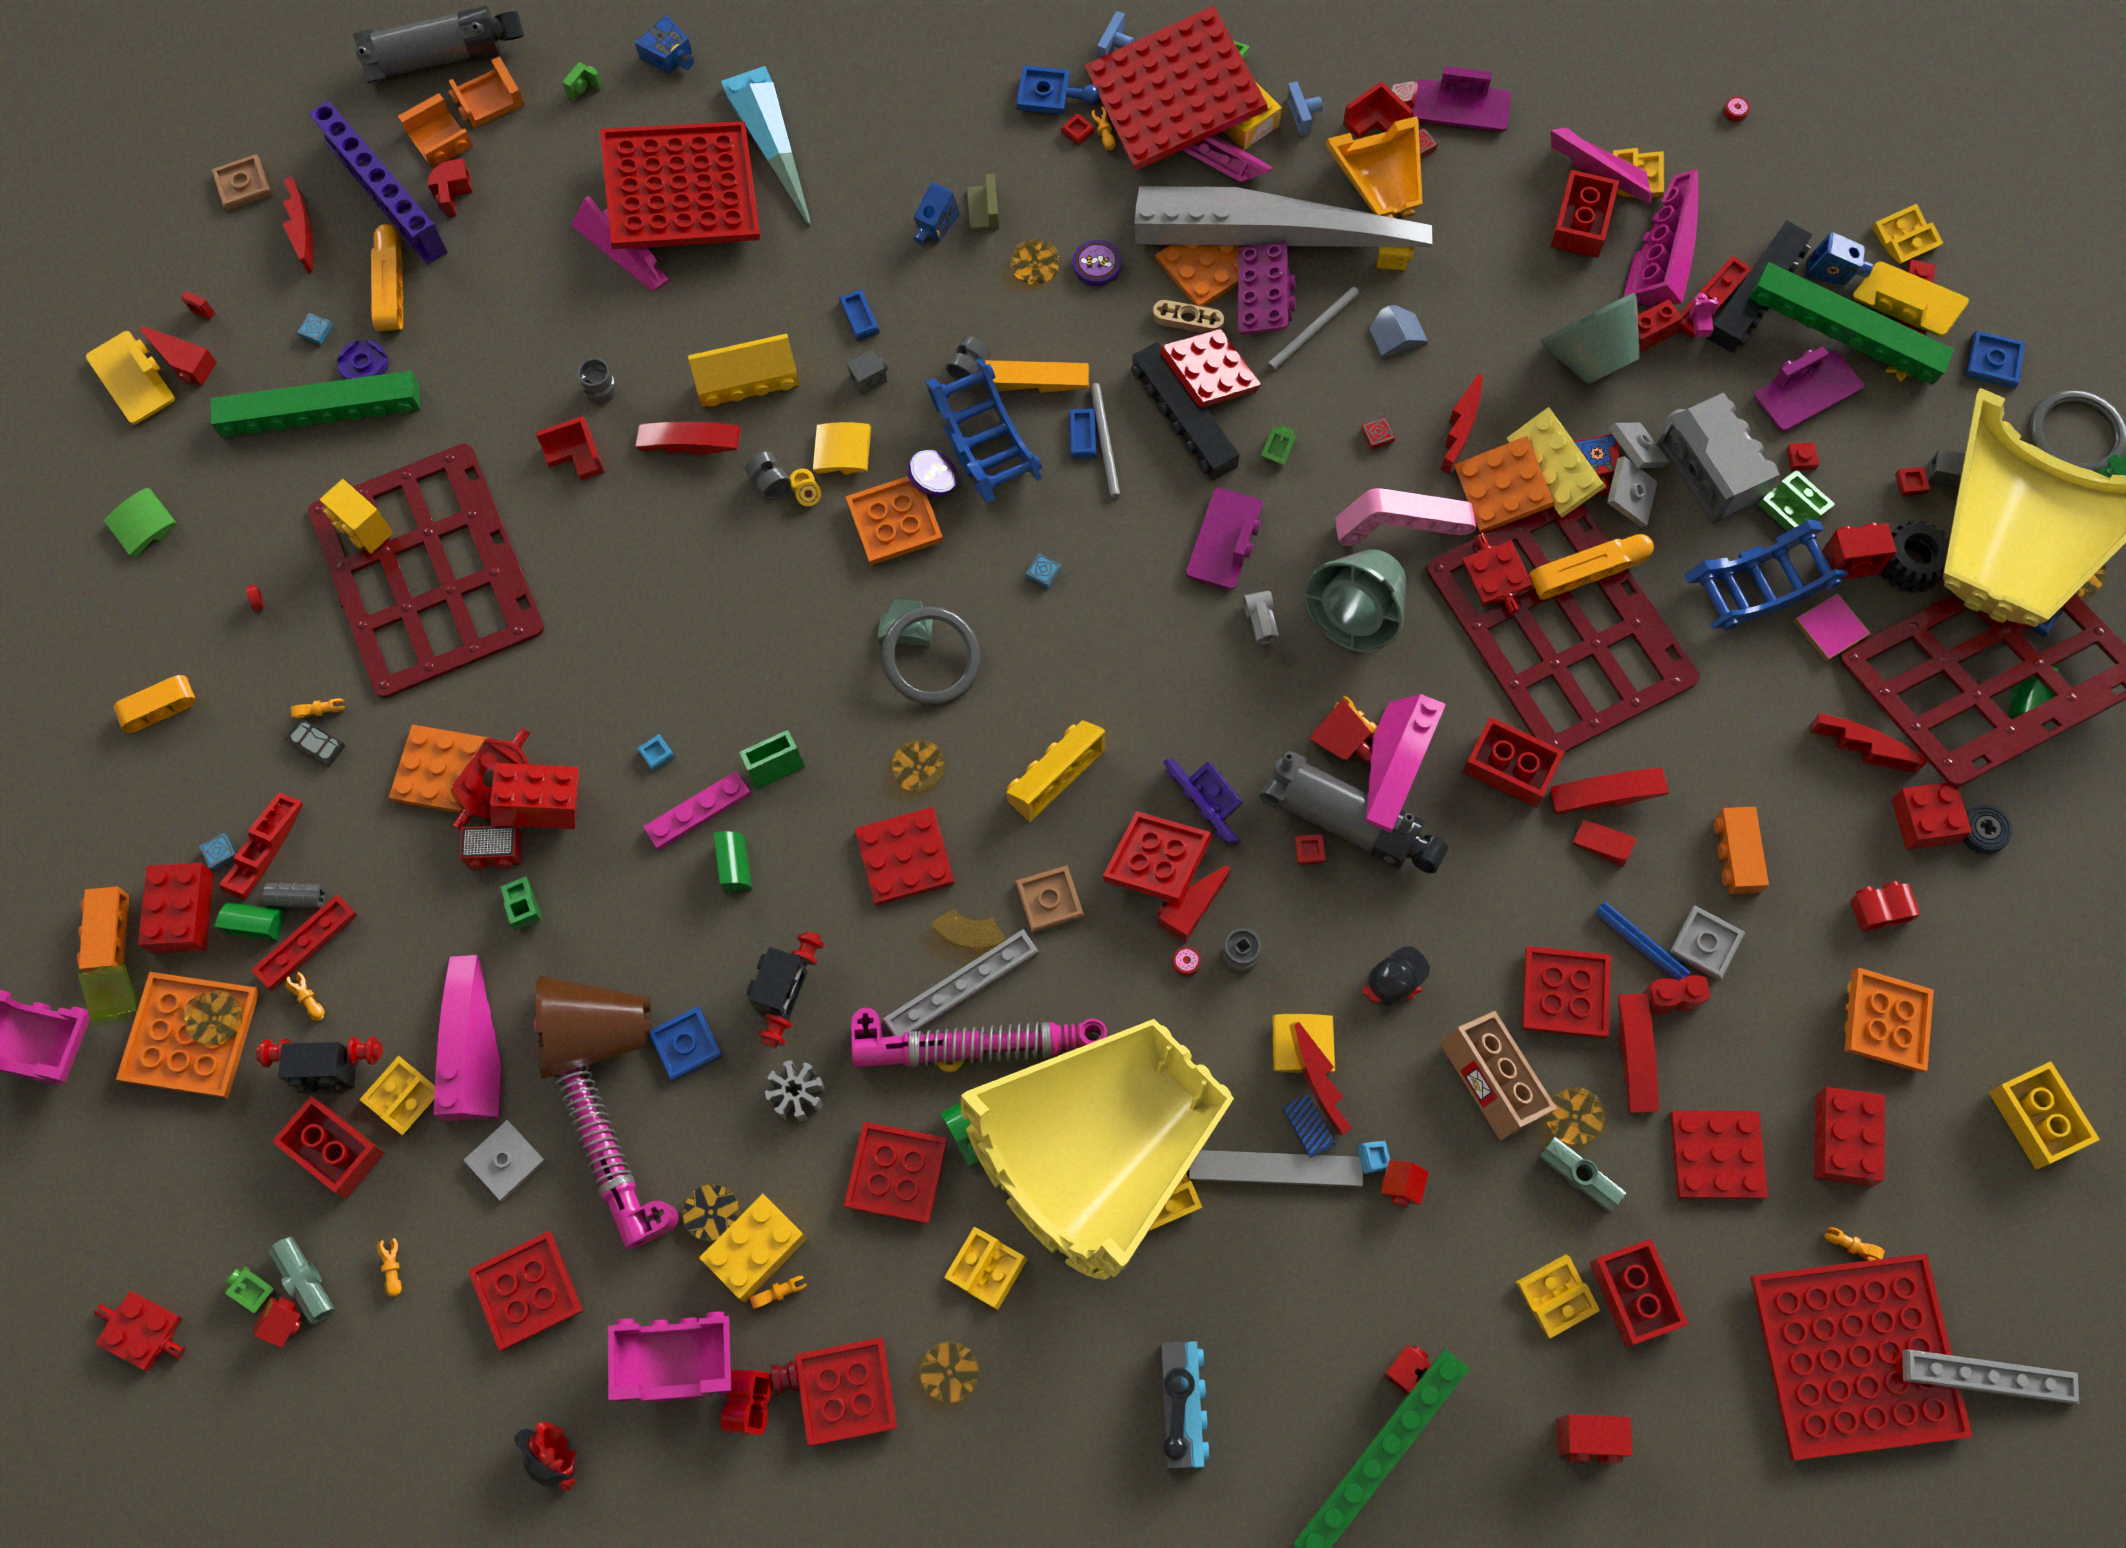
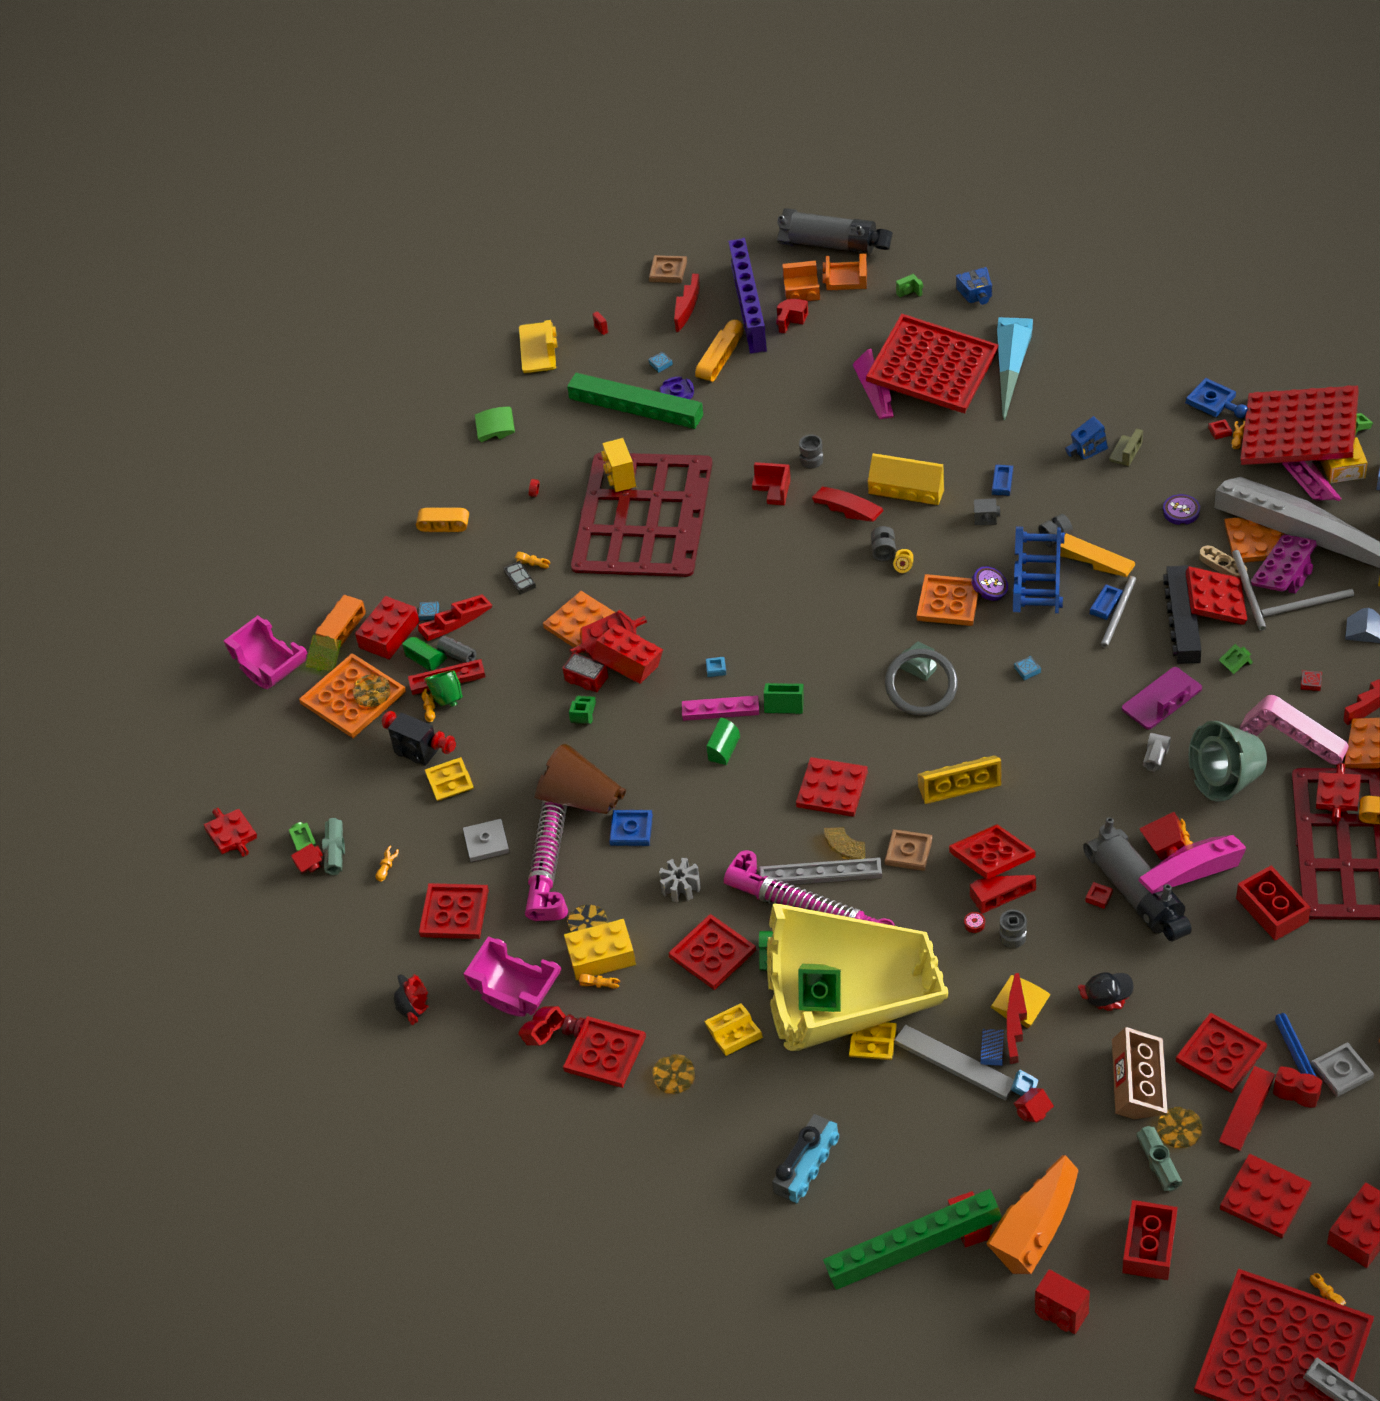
camera: 35 degrees right, 20 degrees down
(188, 360) = (575, 348): red slope -> none
(320, 964) = (445, 688): none -> green helmet
(328, 1147) = (392, 784): red brick -> none
(467, 1047) = (501, 772): dark pink wedge -> none
(779, 985) = (708, 816): black brick -> none
(842, 447) = (941, 548): yellow slope -> none
(918, 765) = (874, 742): clear yellow tile -> none
(1035, 261) = (1139, 493): clear yellow tile -> none
(1065, 1160) = (819, 988): none -> green slope
(1114, 36) = (1279, 382): medium blue tile -> none
(1211, 794) = (1052, 836): dark purple bracket -> none
(1241, 342) = (1249, 590): none -> light grey piece
(1501, 1350) = (1034, 1219): none -> orange wedge
(1557, 1296) = (1095, 1221): yellow slope -> none
(1604, 842) = (1310, 981): red slope -> none
(1609, 790) = (1338, 951): red slope -> none

